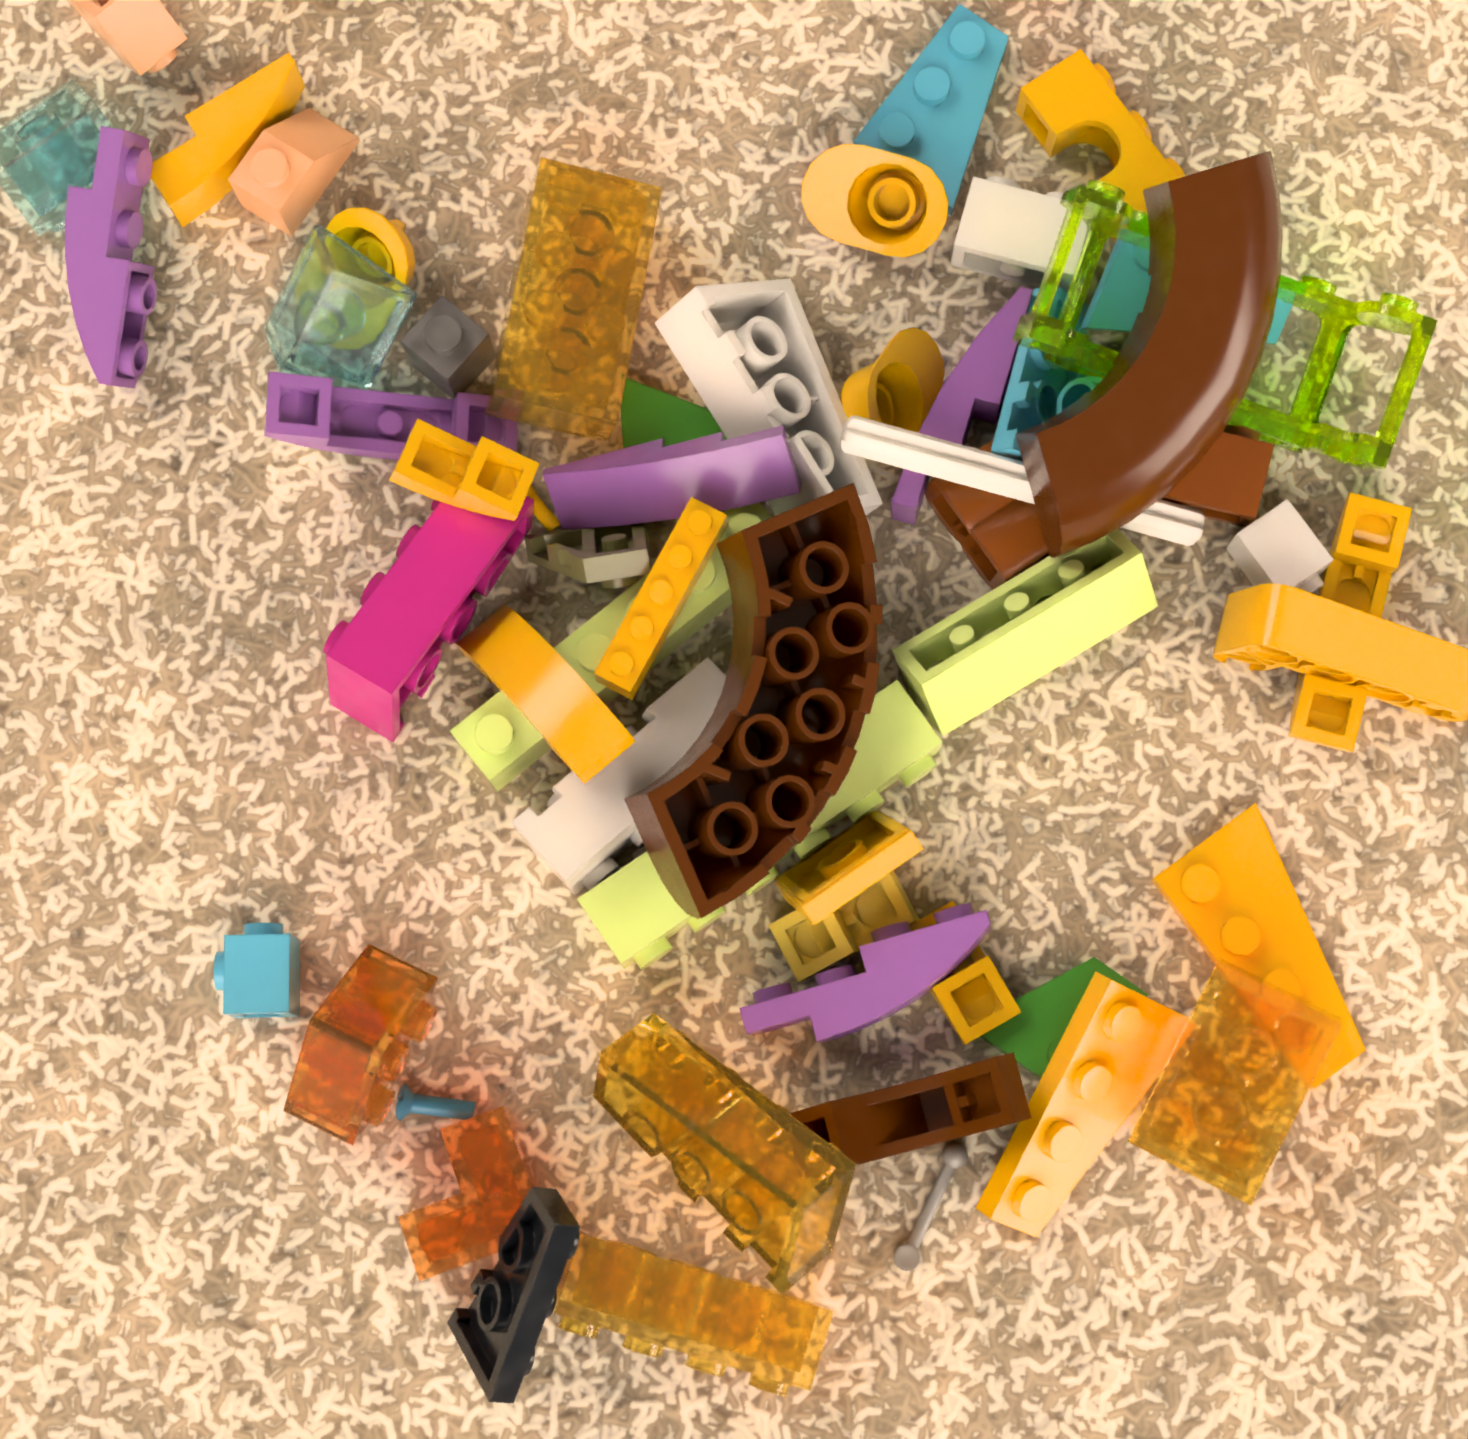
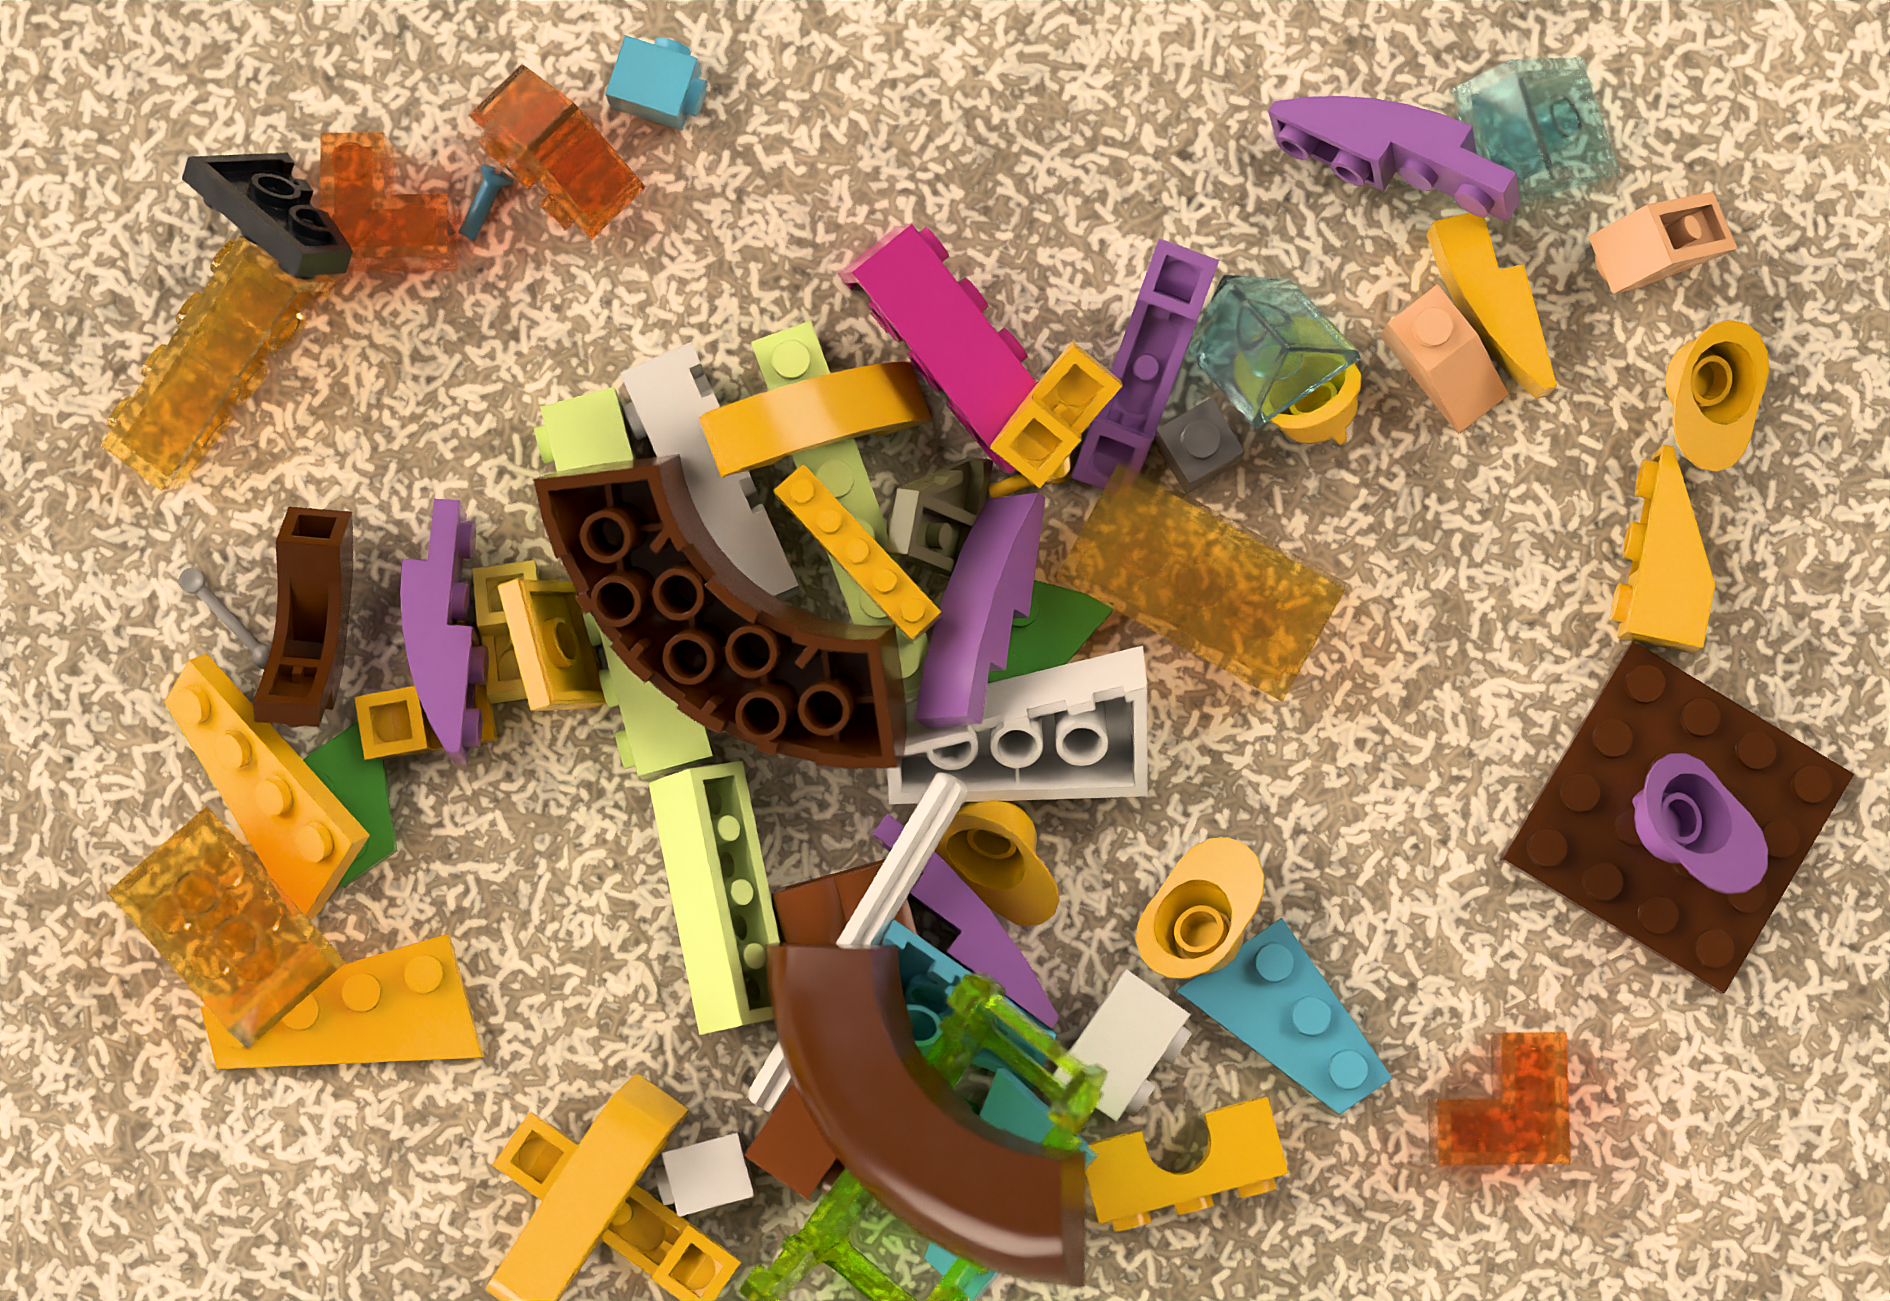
camera: 110 degrees right, 5 degrees up
(730, 1144) = (340, 444): clear yellow wedge -> none

